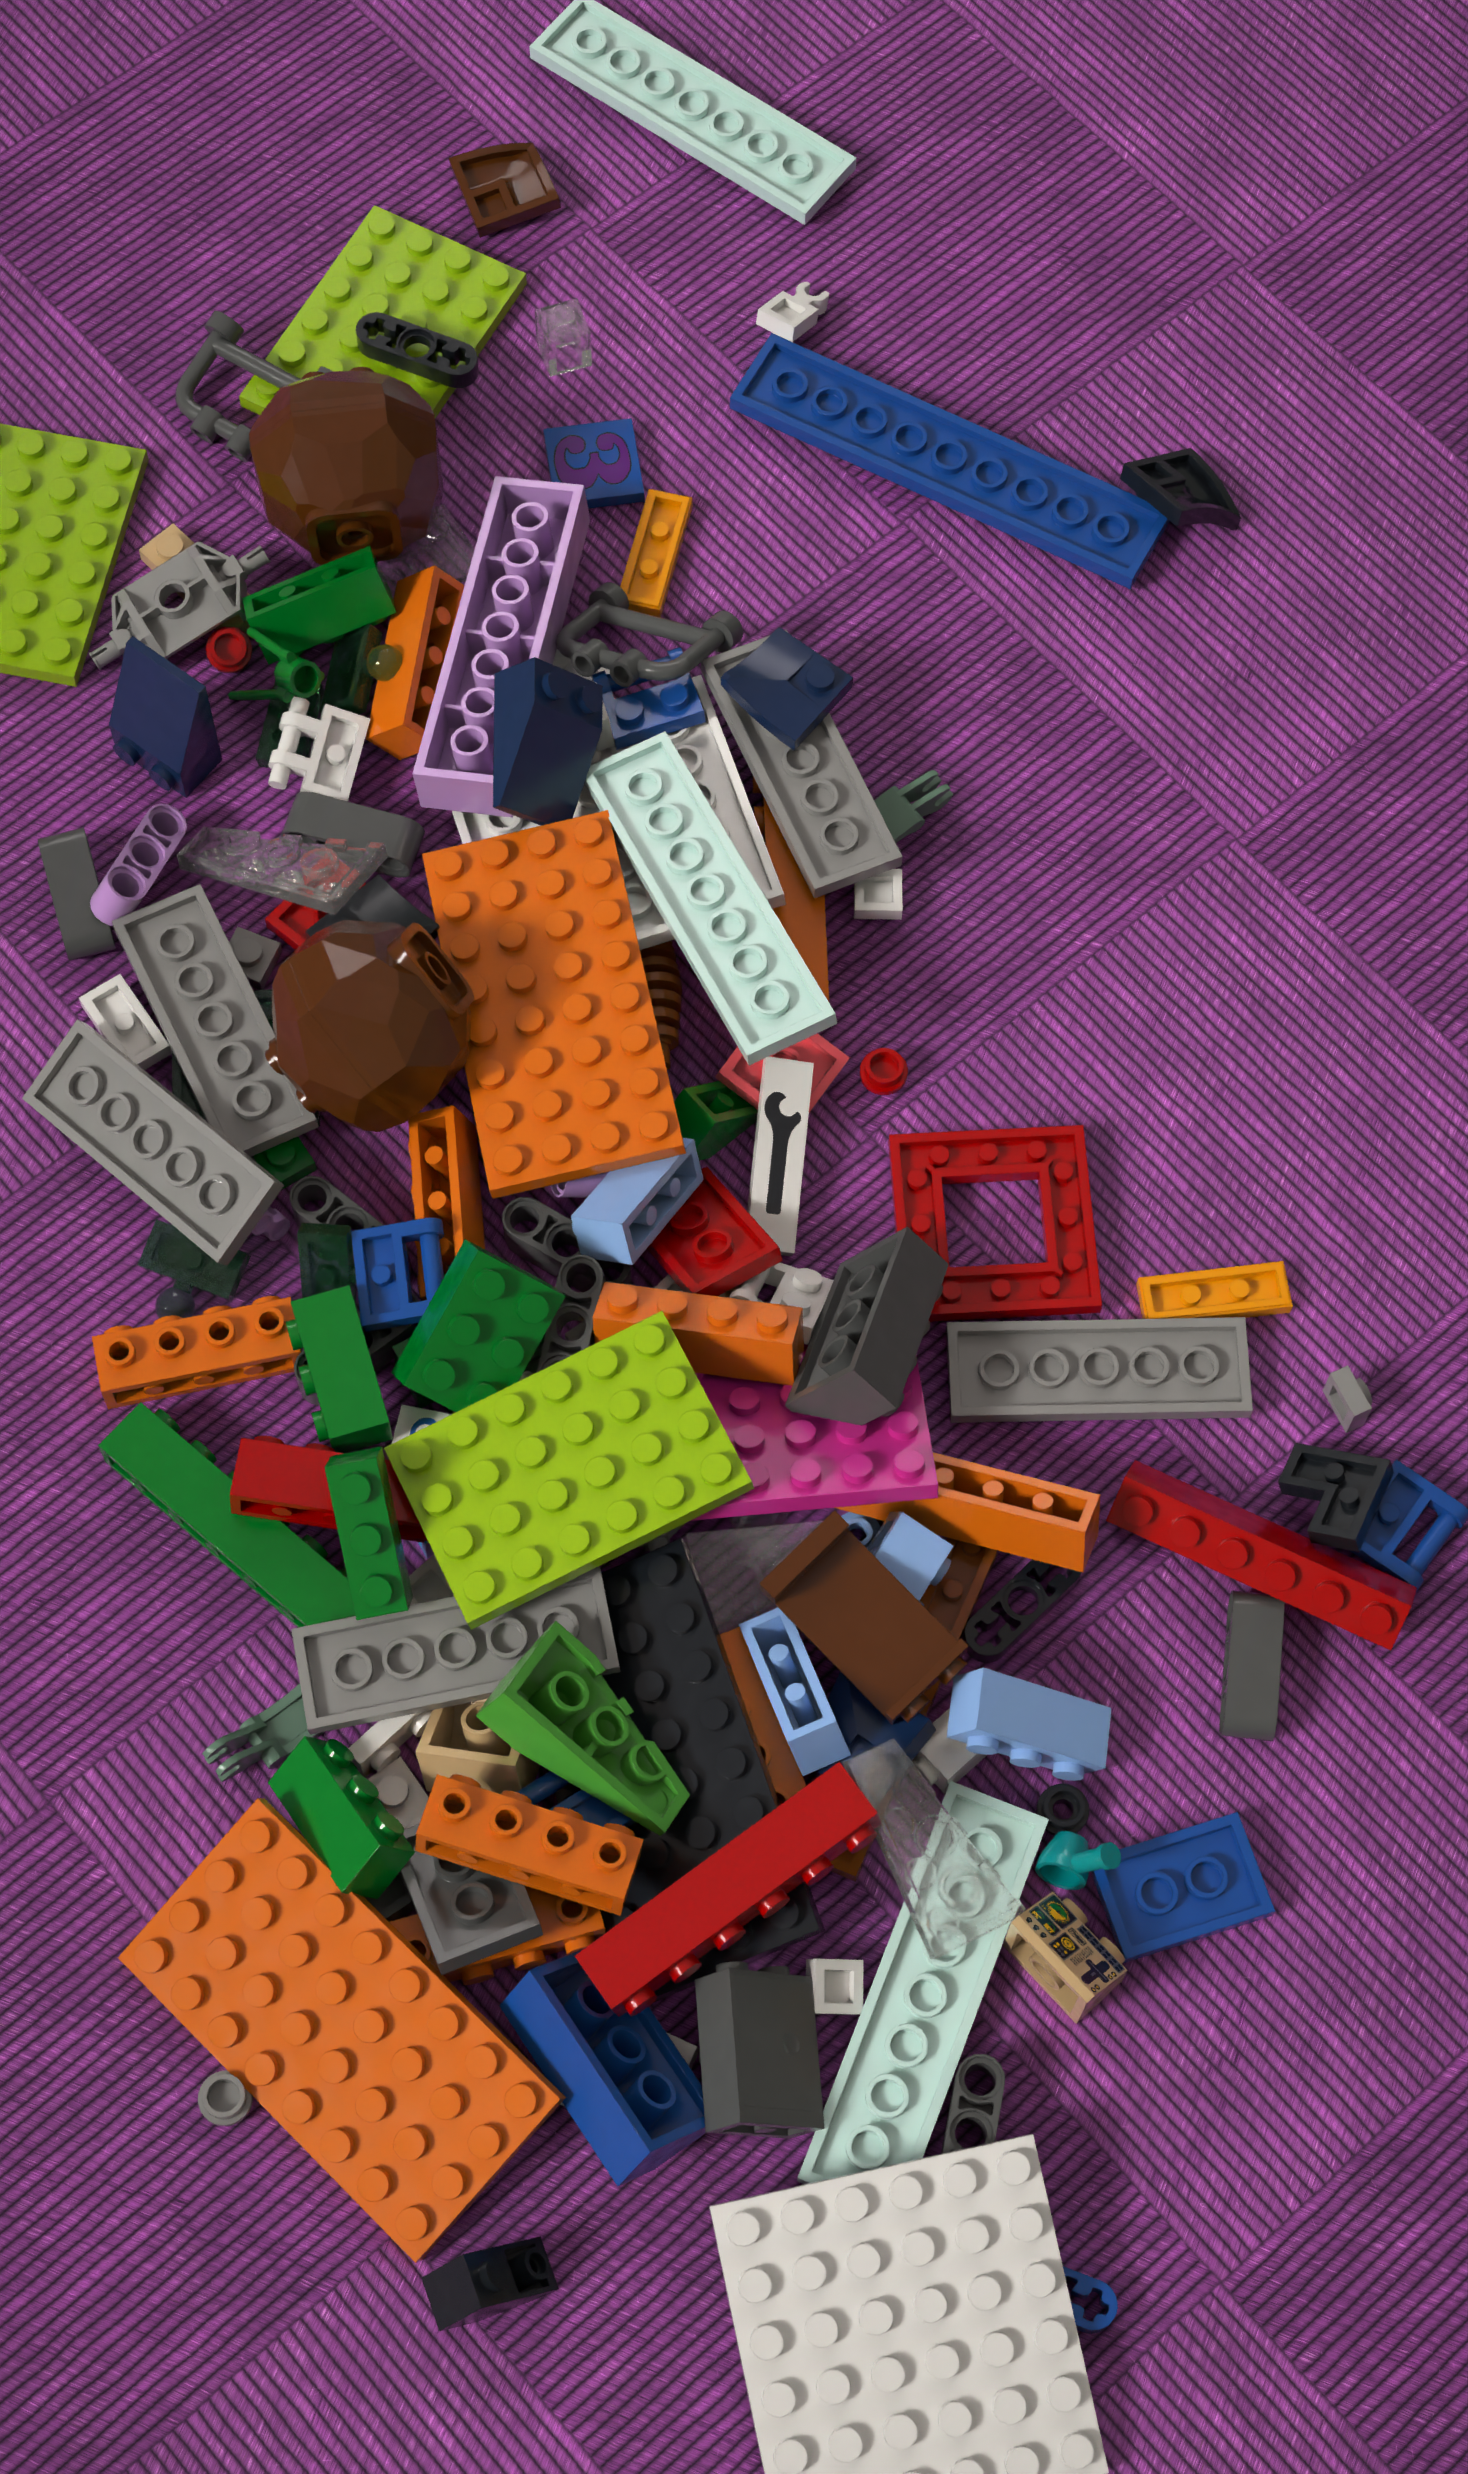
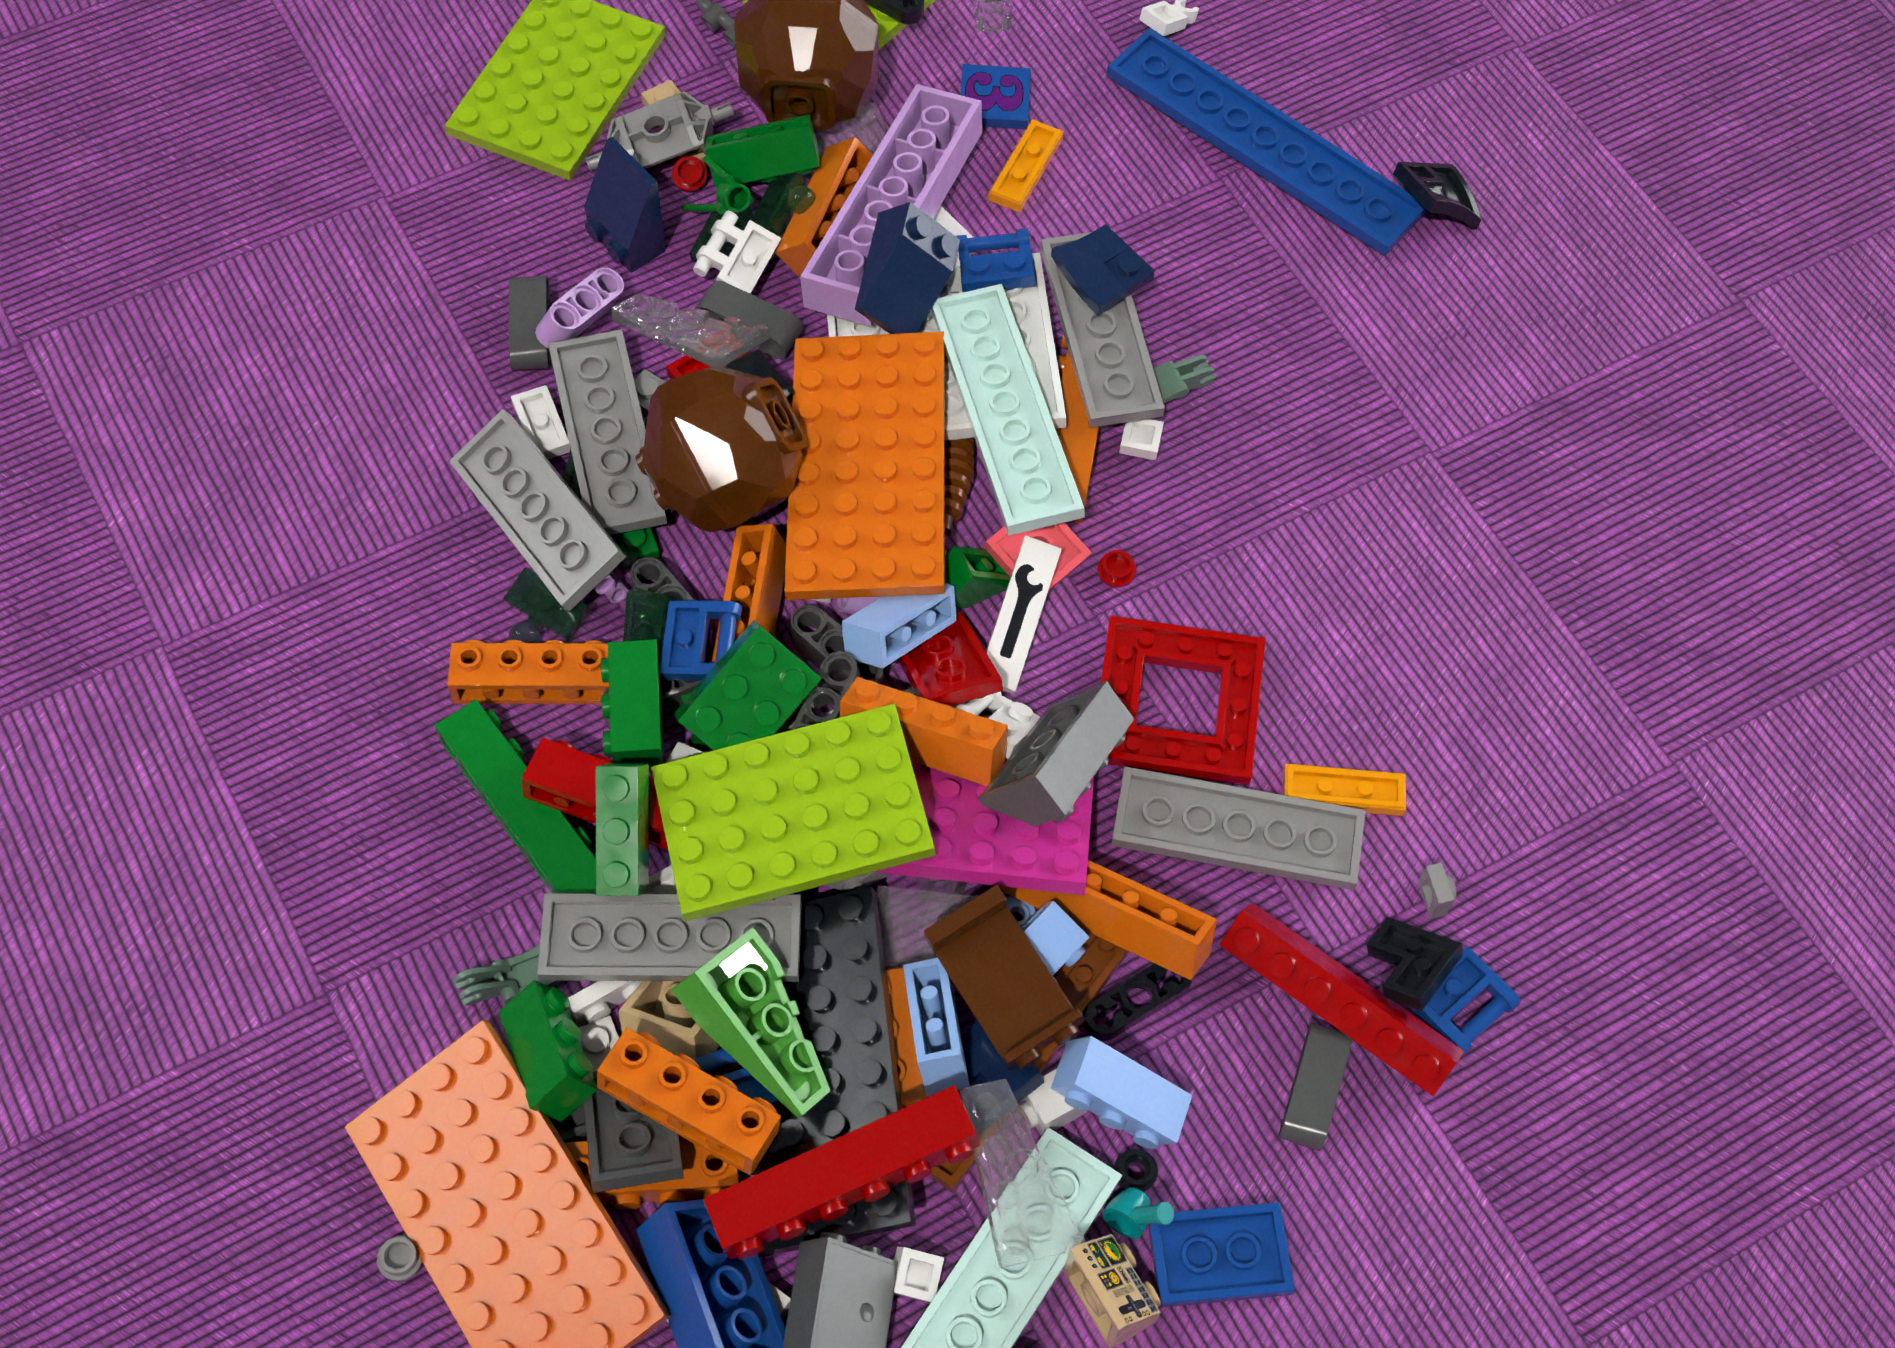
camera: 10 degrees right, 5 degrees down
(610, 606) = (984, 194): dark grey bar -> none

